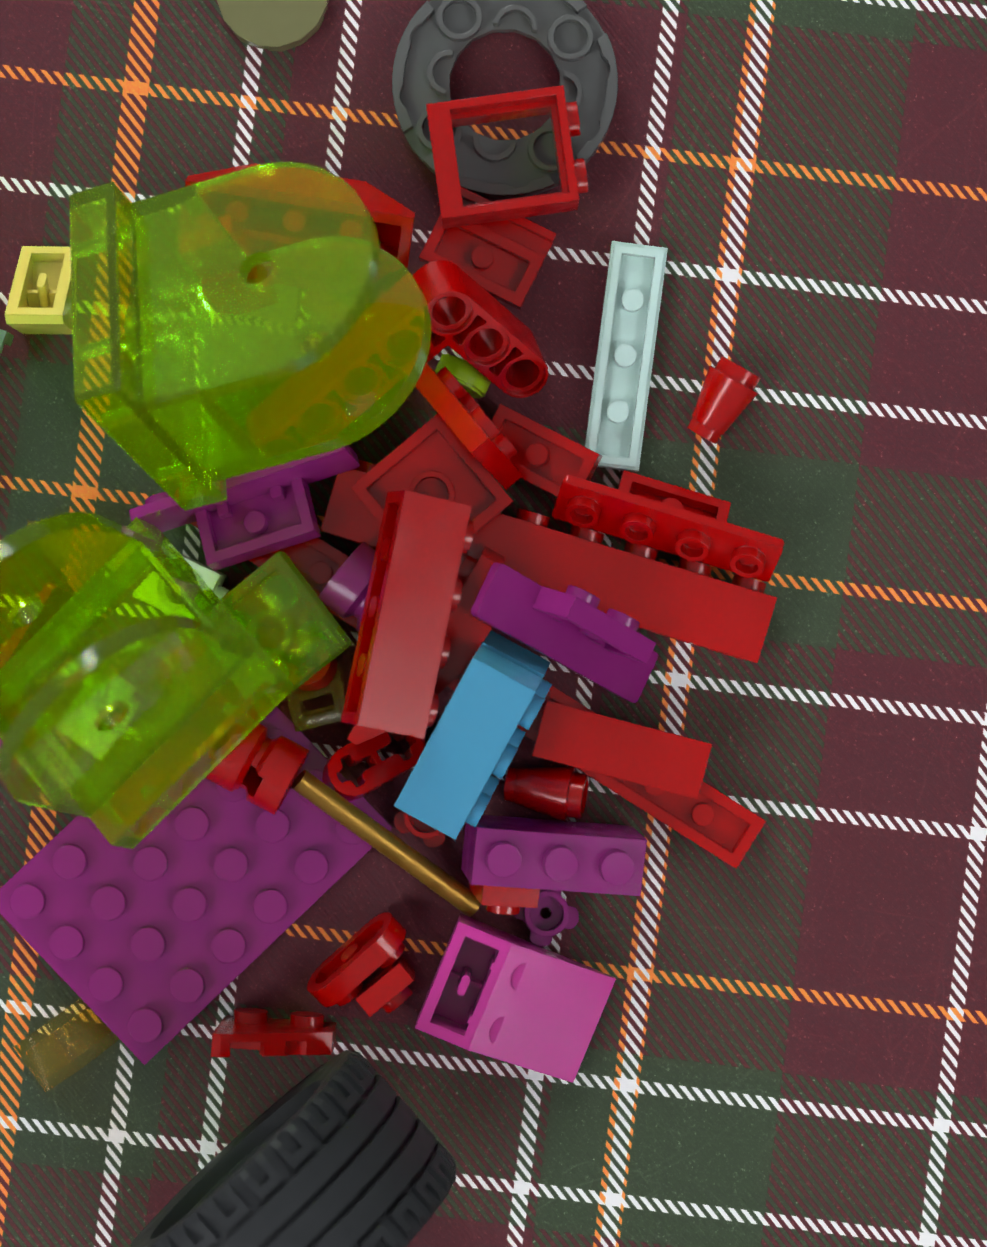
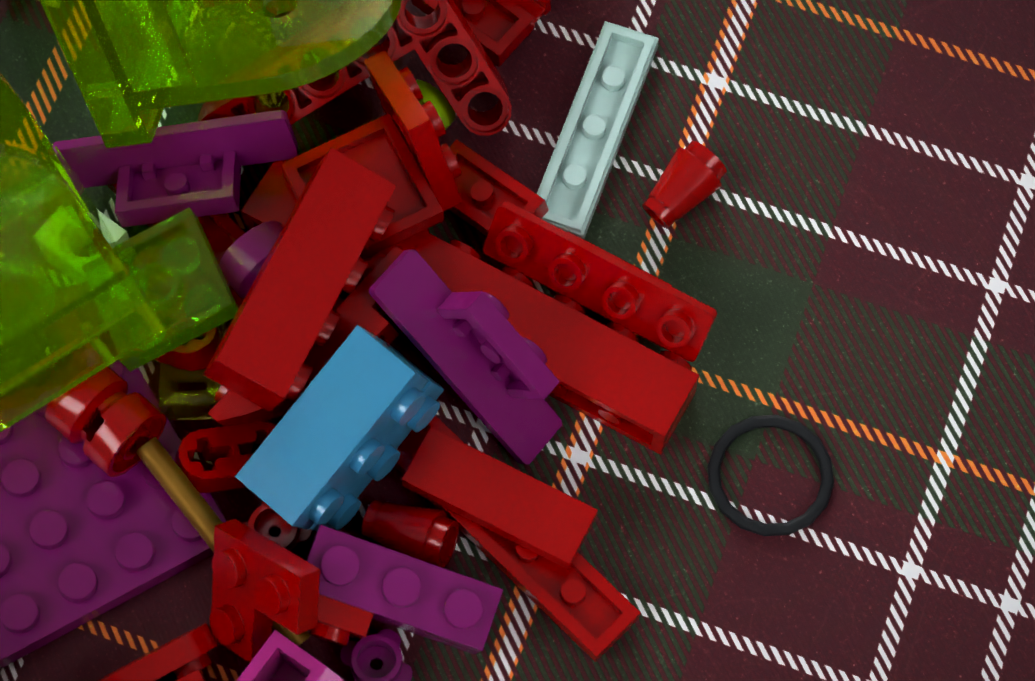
camera: 10 degrees right, 20 degrees down
(435, 889) = (256, 585): none -> red plate
(894, 630) = (736, 516): none -> black piece

